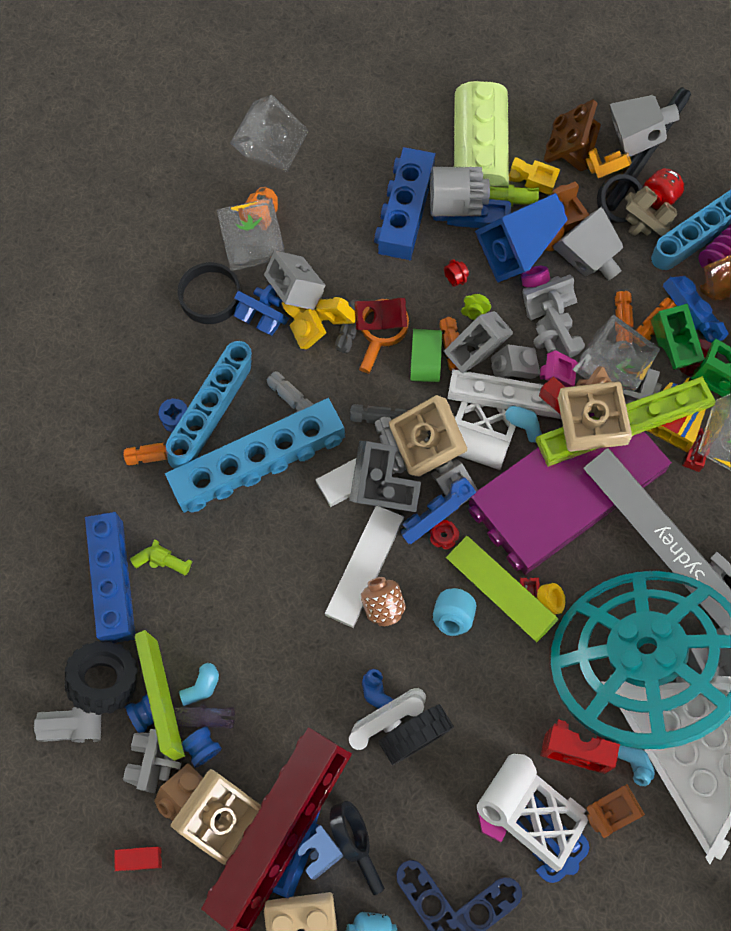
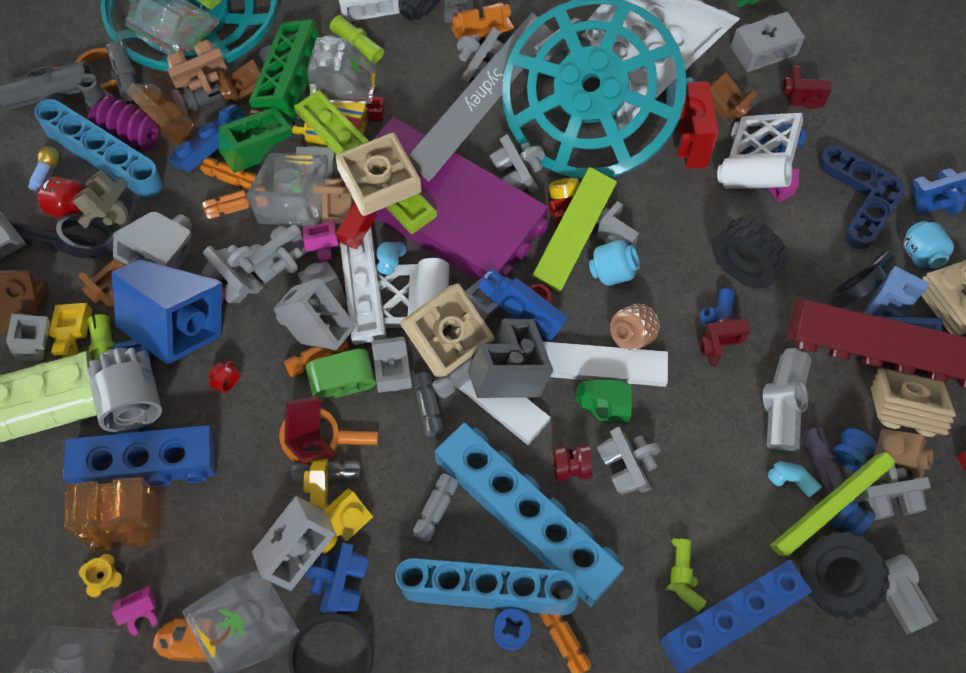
camera: 115 degrees left, 5 degrees down
(266, 552) = (619, 447): none -> light grey hips
(266, 707) = (786, 400): none -> light grey piece
(283, 505) = (572, 462): none -> dark red wheel
(296, 180) = (135, 606): none -> dark pink tile
(326, 159) = (90, 571): none -> yellow plate
(326, 553) = (606, 399): none -> green rock
(351, 685) = (723, 333): none -> dark red bracket
(363, 172) = (112, 513): none -> clear orange brick
(387, 717) = (744, 285): white plate -> none
(413, 391) = (391, 364): none -> light grey bracket
(475, 306) = (264, 341): lime plate -> none
(484, 626) = (612, 229): none -> light grey bracket
(532, 146) = (28, 336): none -> light grey leg
(590, 567) = (509, 155): none -> light grey hips
(593, 905) = (805, 91): none -> dark red bracket
(613, 163) = (42, 252): light orange bracket -> none
(676, 911) = (767, 41): none -> light grey brick
(711, 186) = (47, 159): none -> piece

